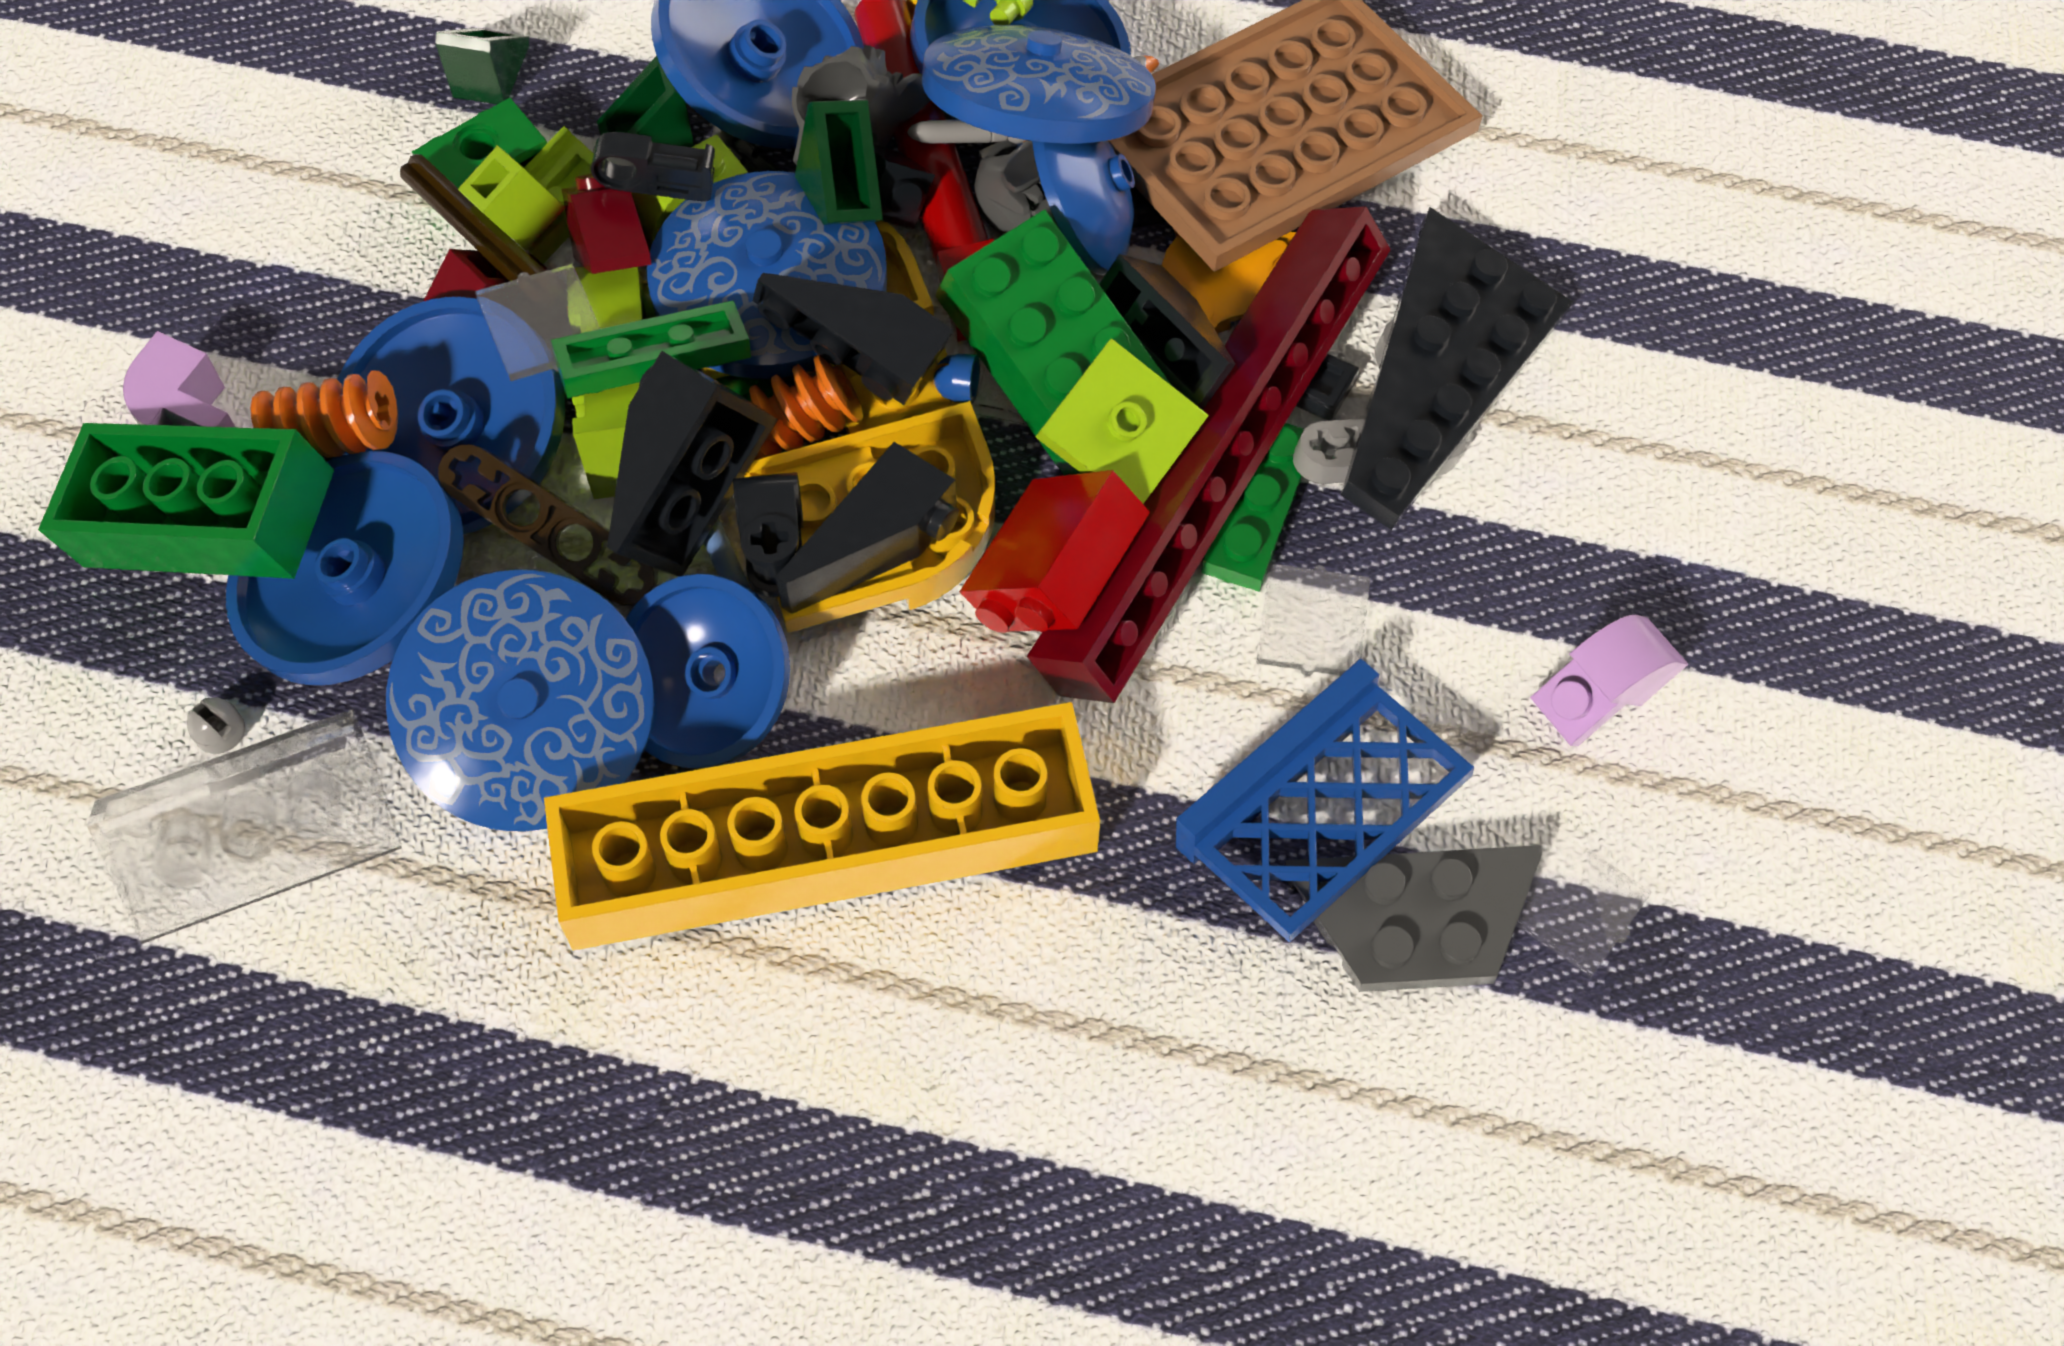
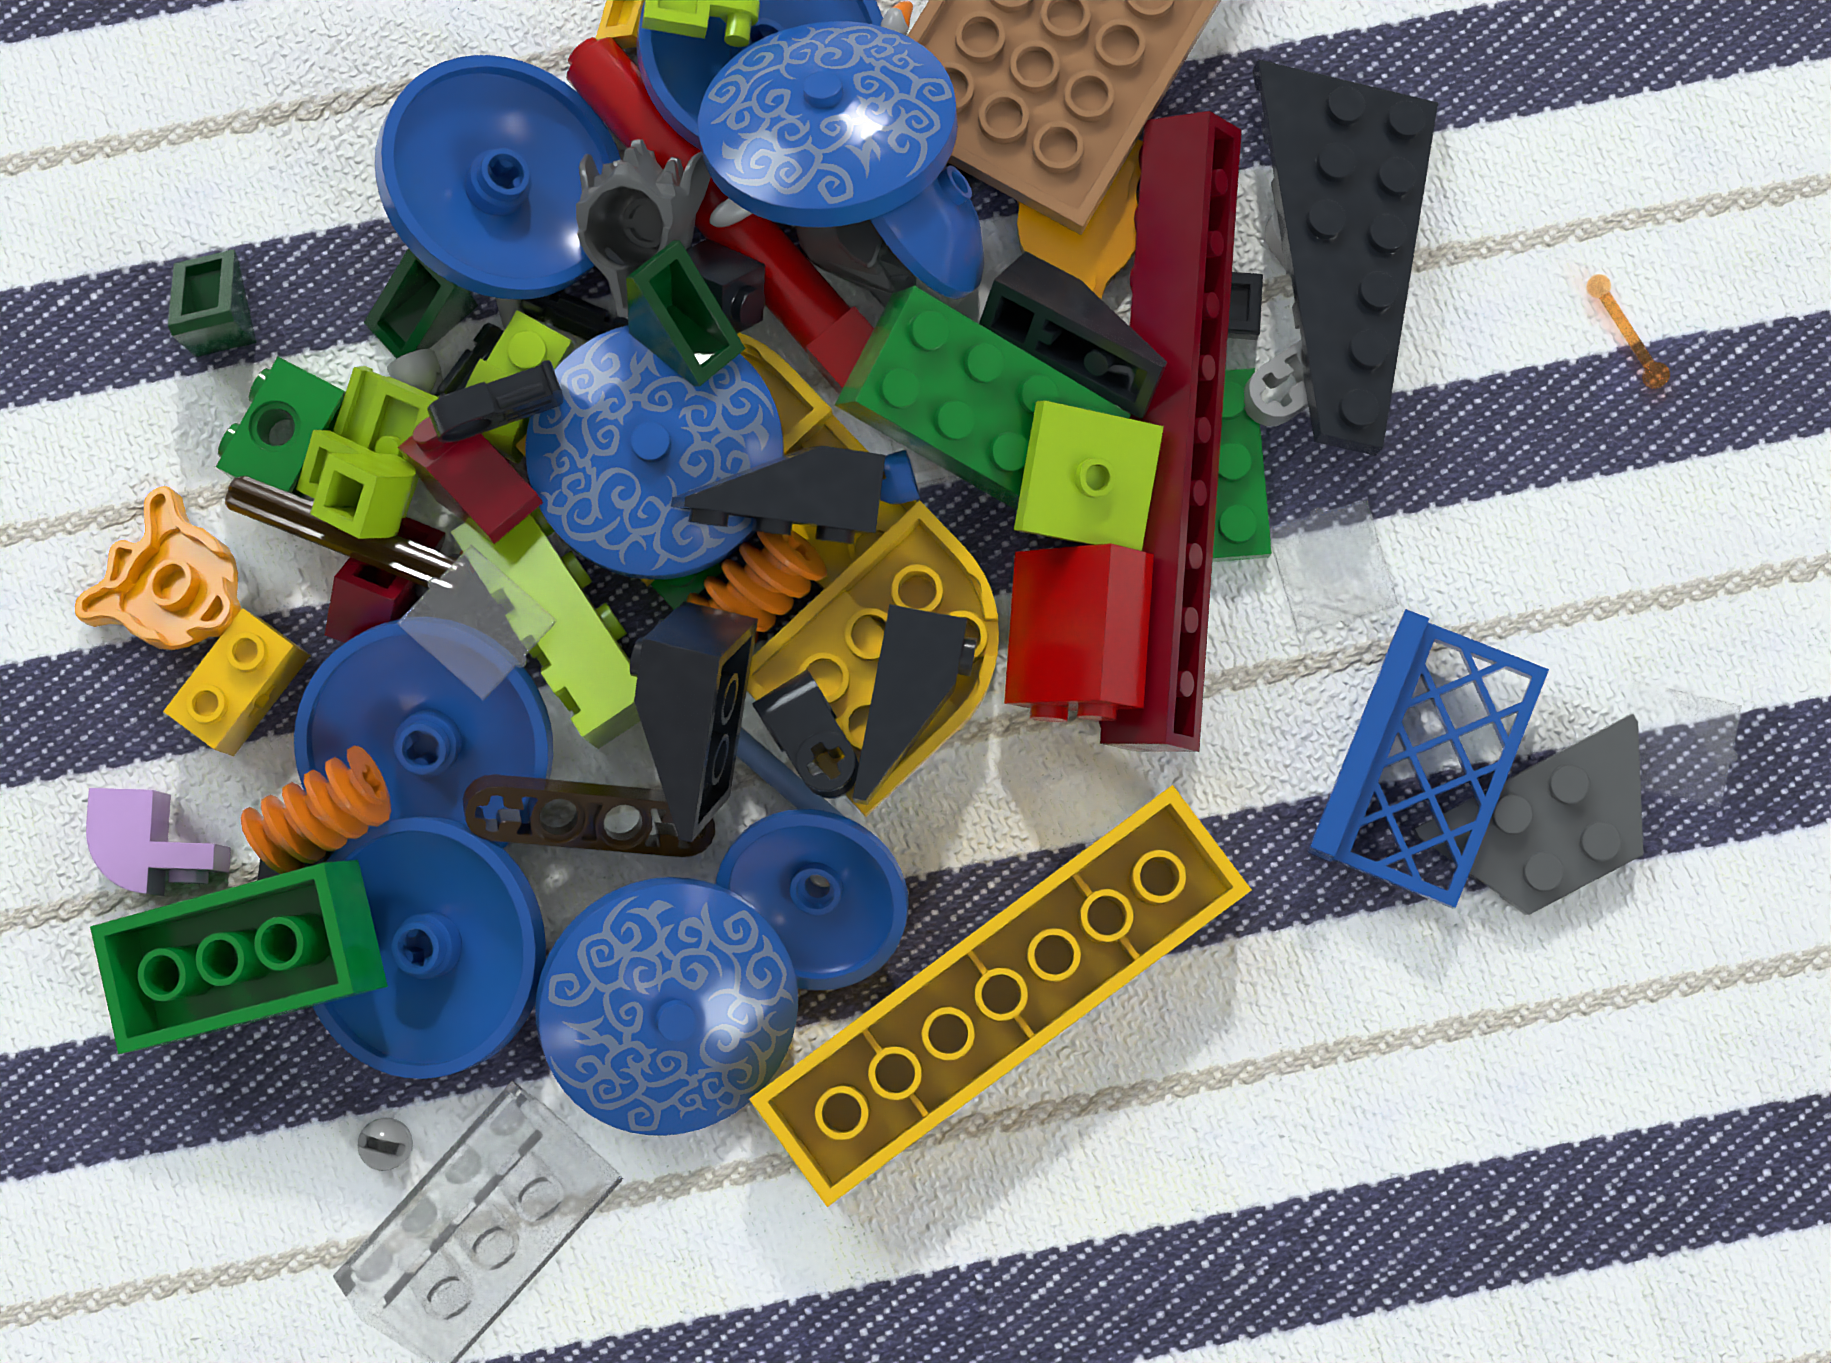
camera: 20 degrees left, 20 degrees up
(321, 226) = (168, 585): none -> light orange tile
(324, 313) = (236, 683): none -> yellow brick
(626, 351) = (606, 611): green plate -> none
(1608, 670) = (1632, 515): lavender brick -> none
(1683, 585) = (1655, 373): none -> clear orange hinge

